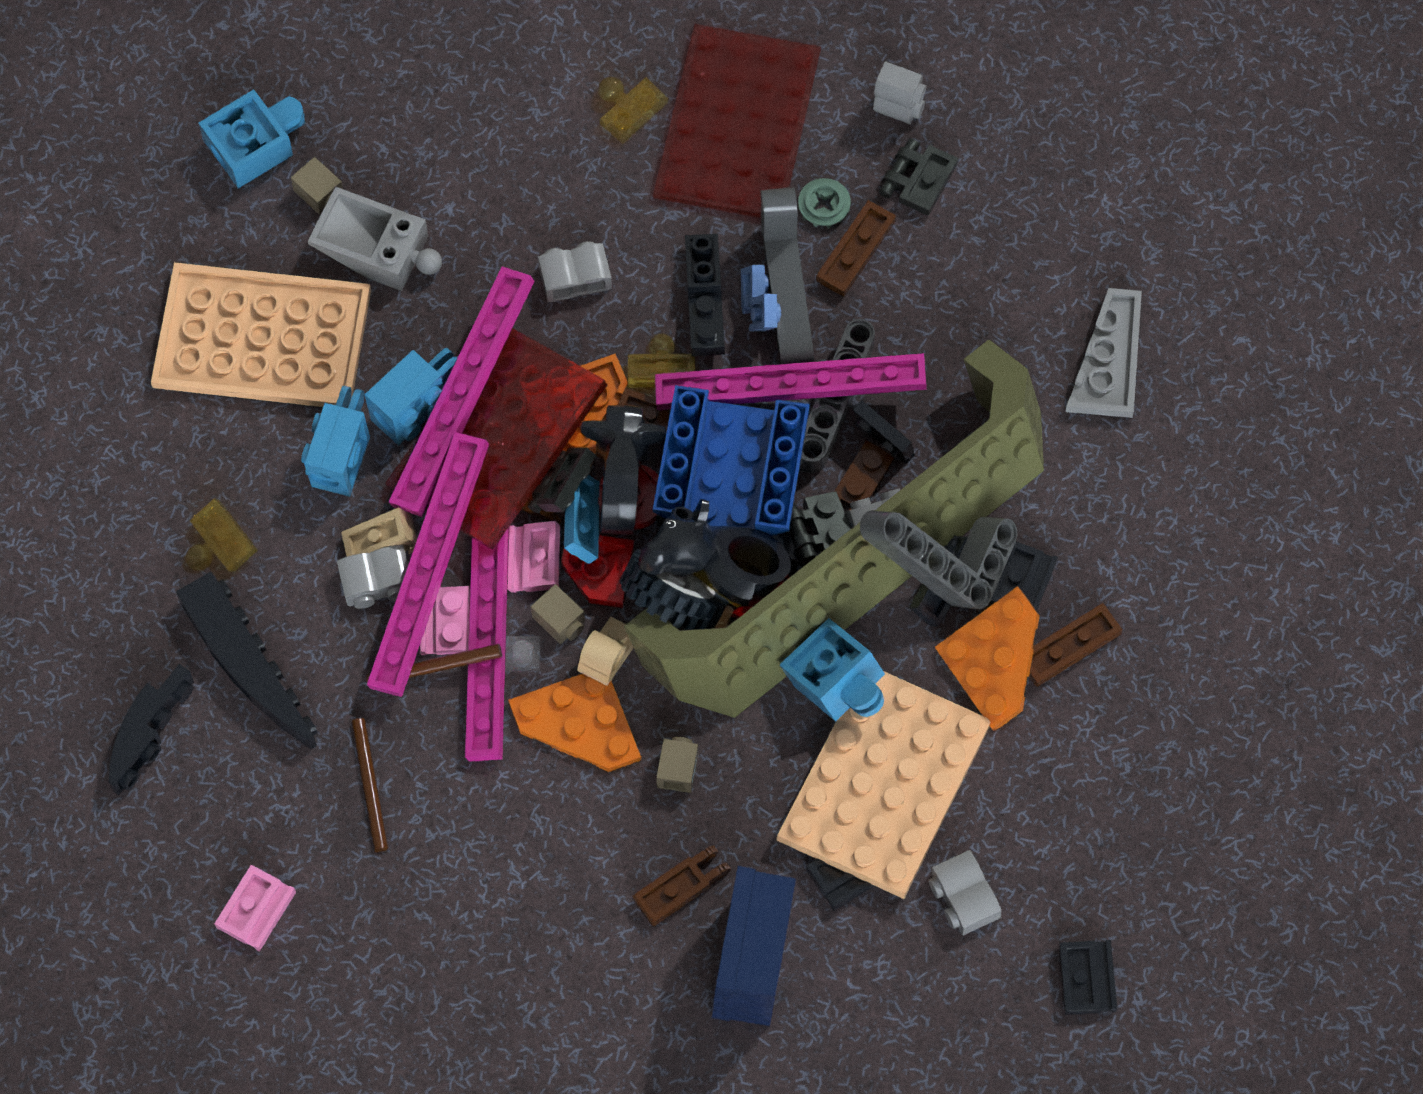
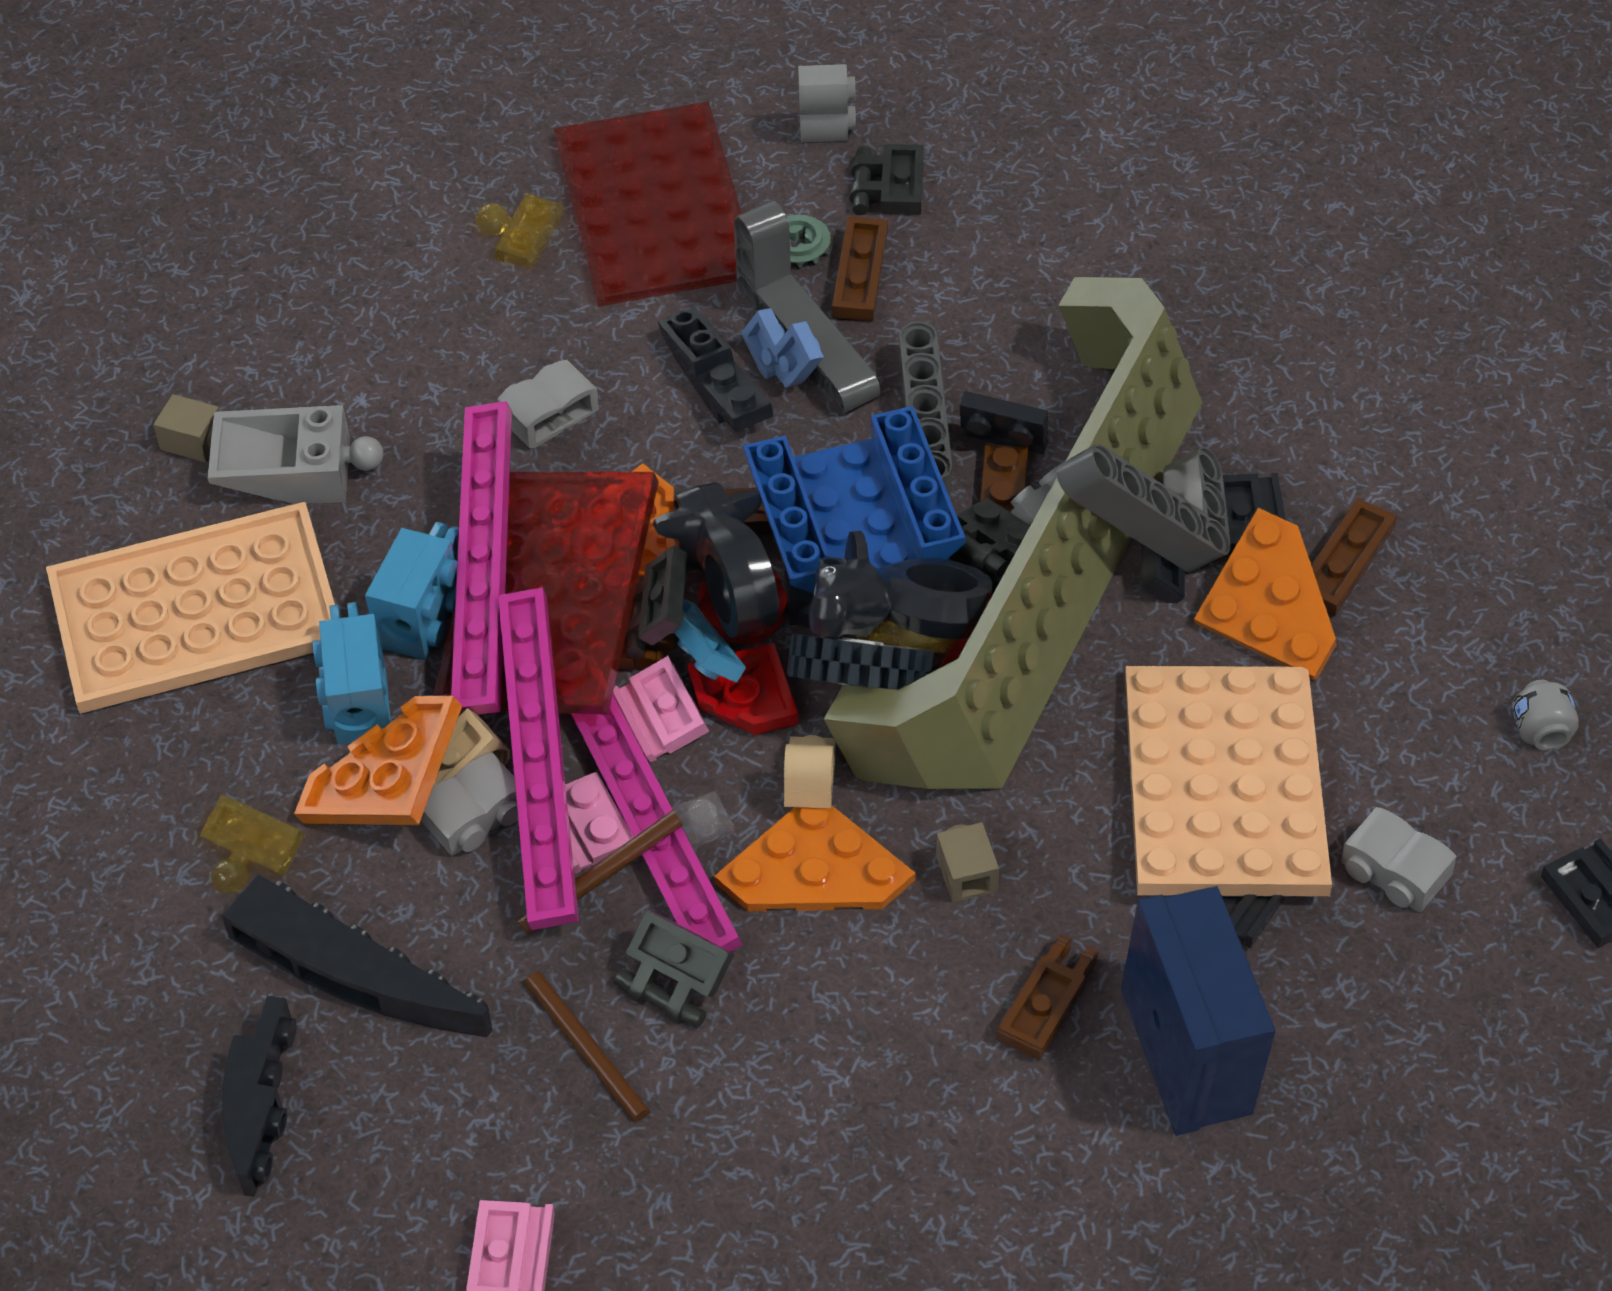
camera: 25 degrees left, 15 degrees down
(250, 136) = (81, 404): dark azure brick -> none
(327, 528) = (387, 769): none -> orange plate
(454, 753) = (680, 955): none -> pearl dark grey plate
(558, 615) = (726, 757): dark tan brick -> none
(659, 361) = (700, 460): clear yellow plate -> none
(799, 380) = (907, 386): dark pink plate -> none
(836, 672) = (1102, 678): dark azure brick -> none
(1110, 362) = (1209, 272): light grey wing -> none
(1133, 830) = (1545, 714): none -> light grey head

